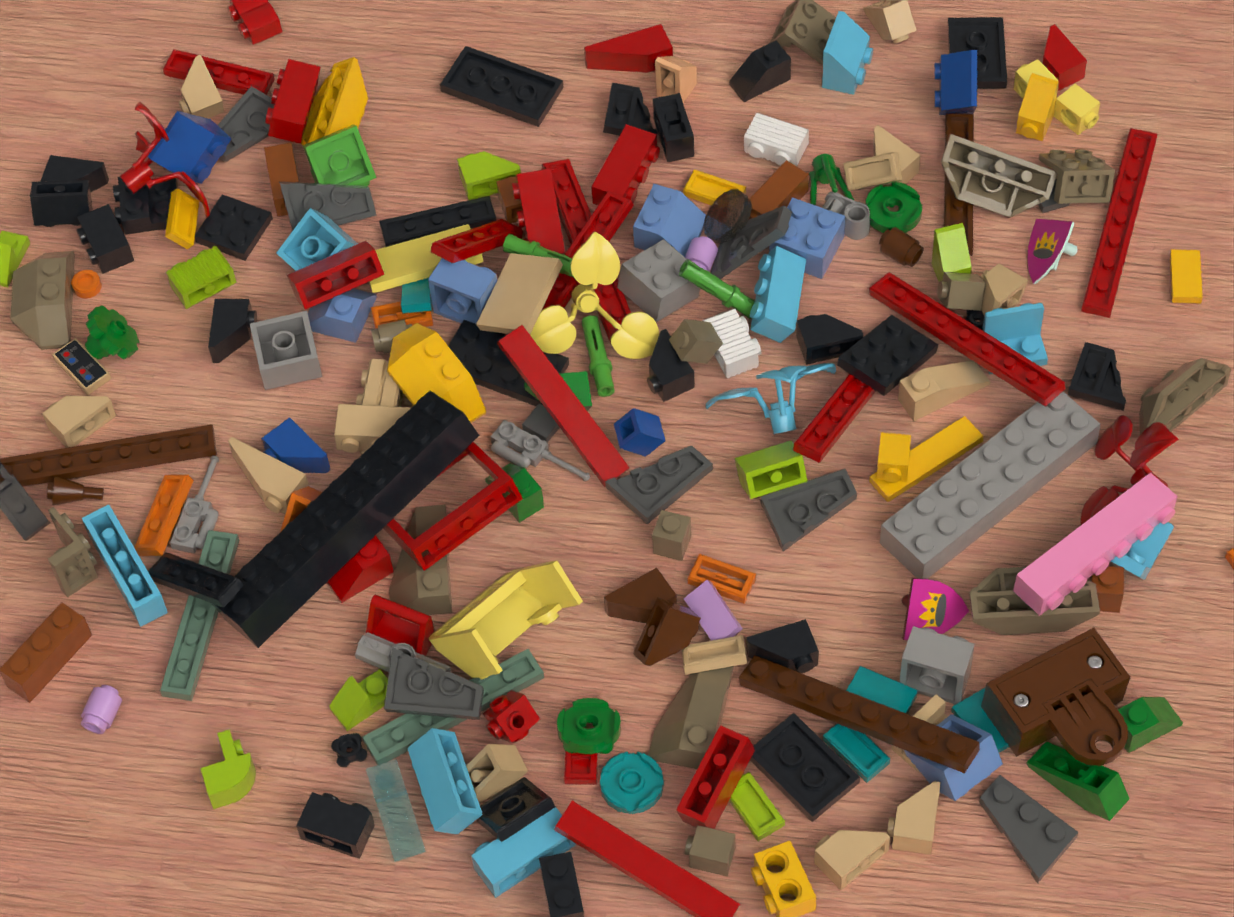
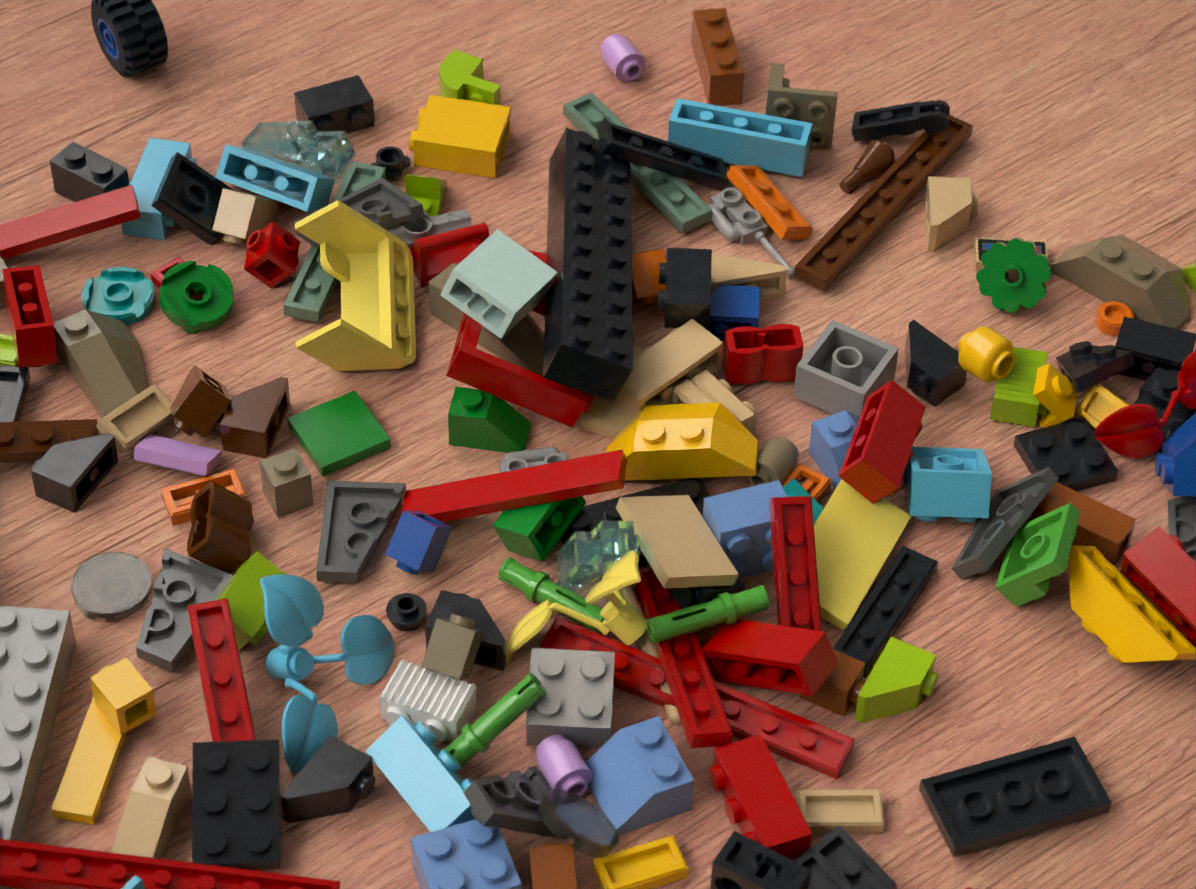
camera: 130 degrees right, 10 degrees down
(154, 249) = (1090, 364): none -> black wing
(198, 243) = (1056, 394): none -> yellow bracket
(210, 281) = (986, 354): none -> yellow head
(282, 726) = (461, 136): none -> yellow brick
(313, 397) = (762, 353): none -> red brick
(313, 452) = (687, 287): none -> black brick
(435, 506) = (498, 283): none -> light aqua brick
(572, 322) = (593, 553): none -> clear light blue slope
(586, 144) = (851, 809): none -> tan tile
(601, 558) = (338, 433): none -> green tile
(684, 417) = (406, 619): none -> black plate
(741, 529) = (220, 528): none -> reddish brown brick
(831, 555) = (112, 586): none -> clear smoke tile

